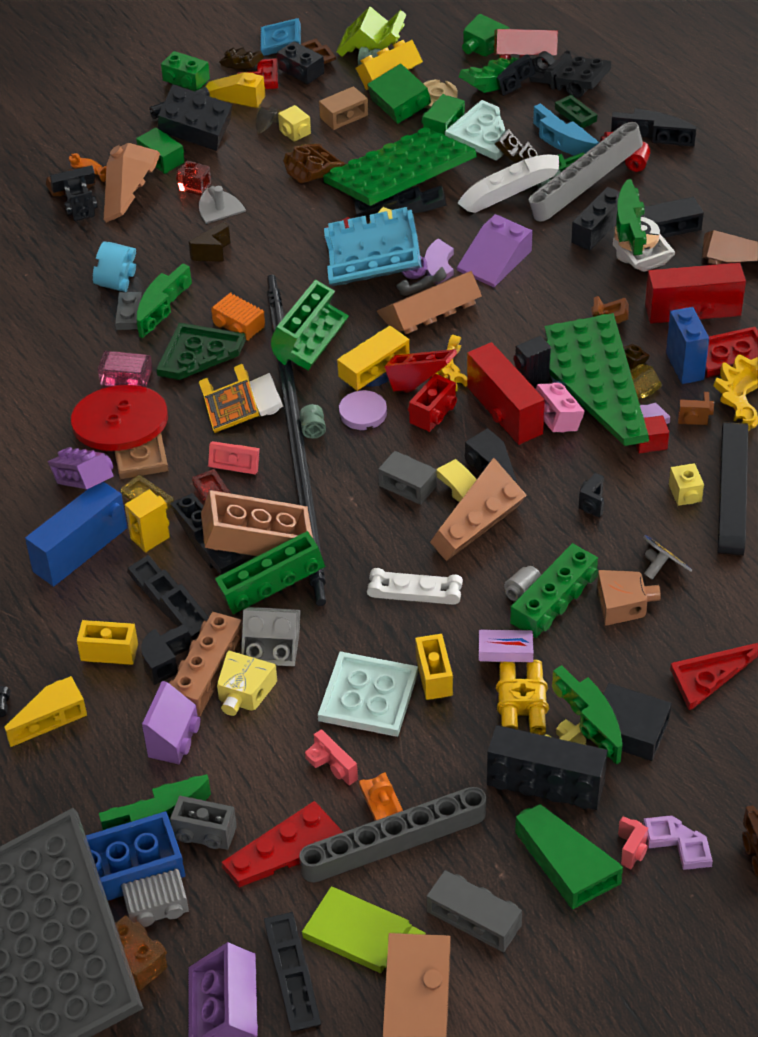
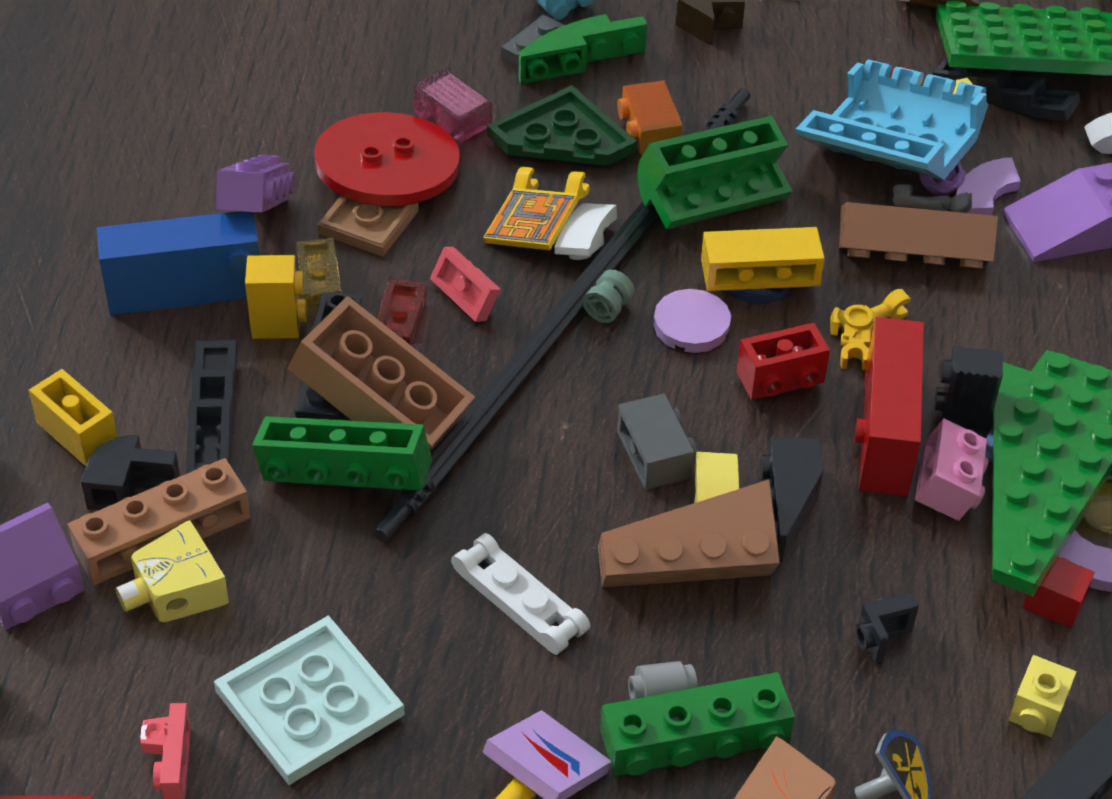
camera: 35 degrees right, 0 degrees up
(271, 635) = (270, 536): light grey slope -> none
(413, 369) = (793, 301): red slope -> none
(434, 666) = (418, 719): yellow brick -> none

